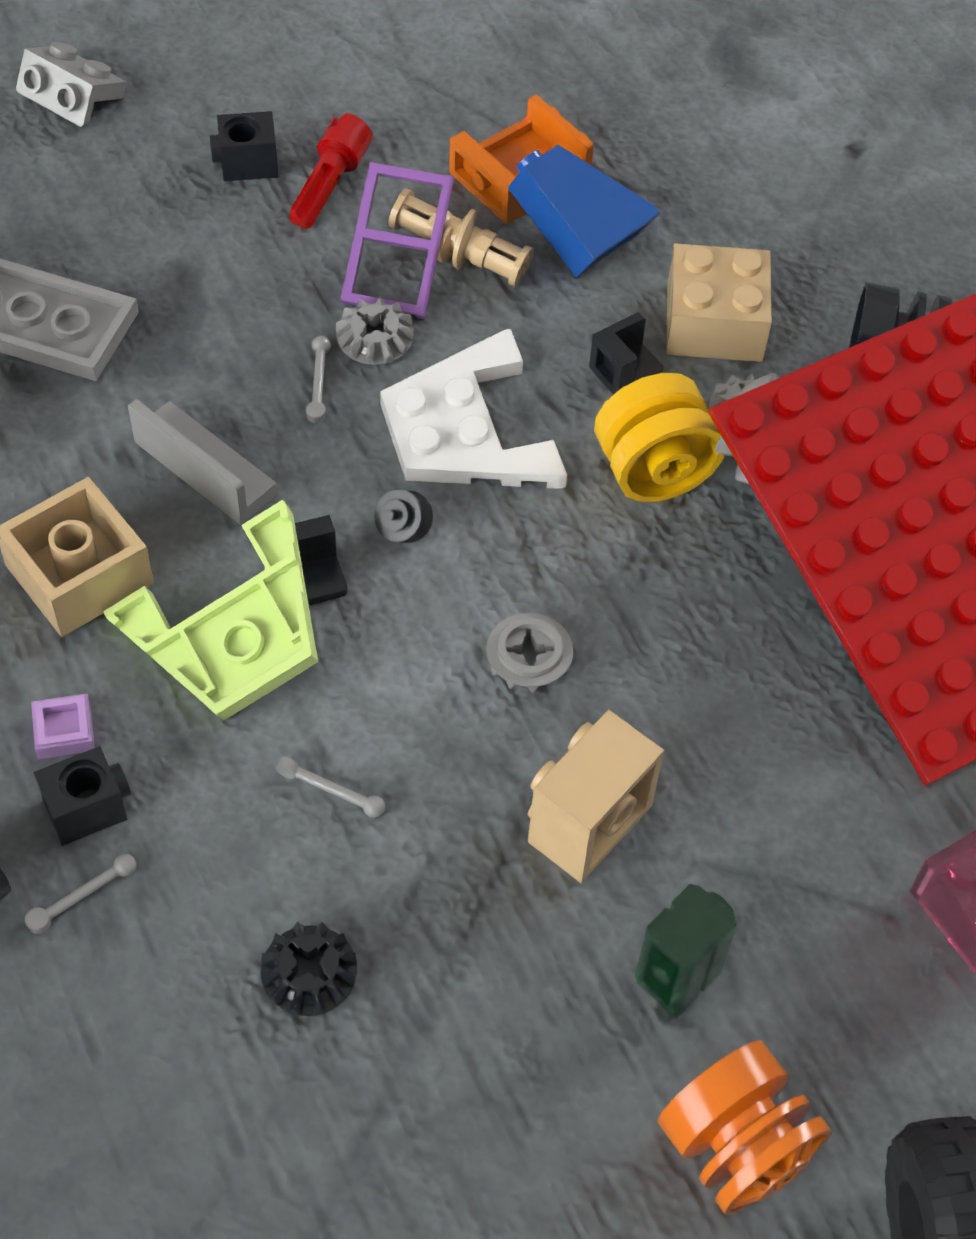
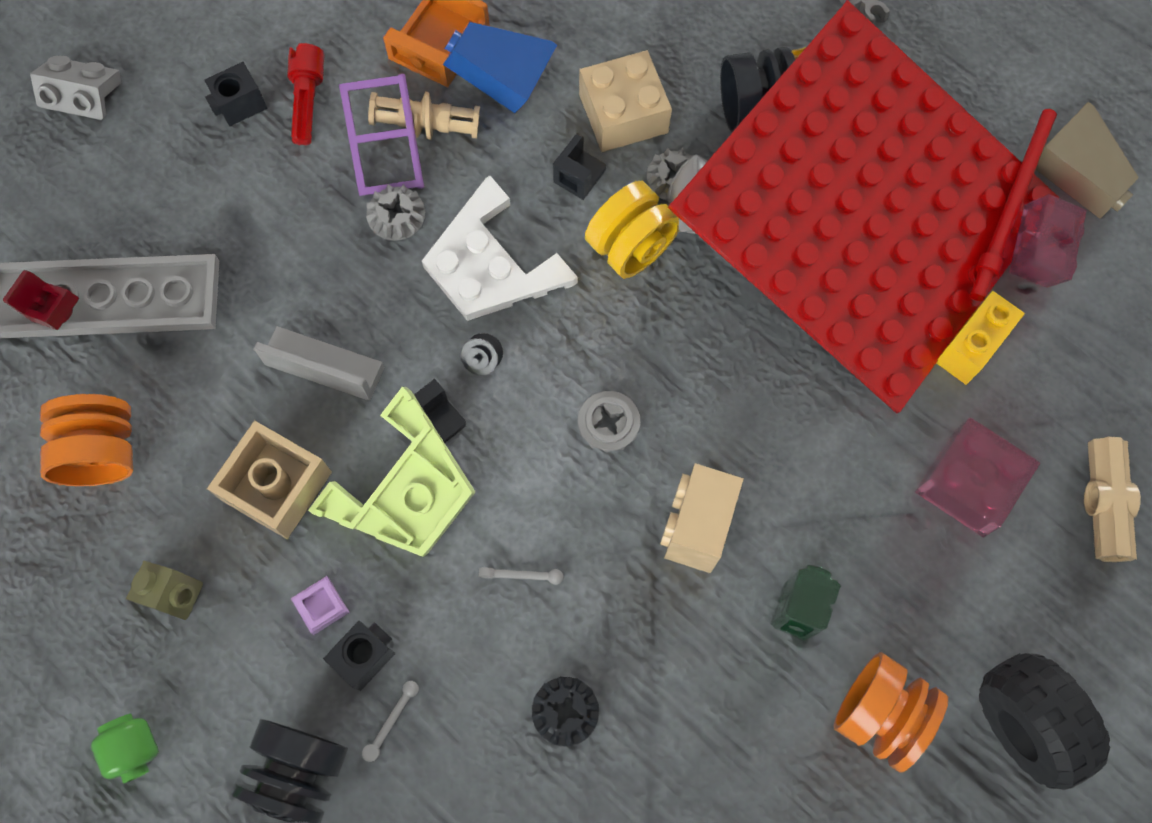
camera: 20 degrees left, 15 degrees up
(316, 410) = (381, 291): light grey hinge -> none

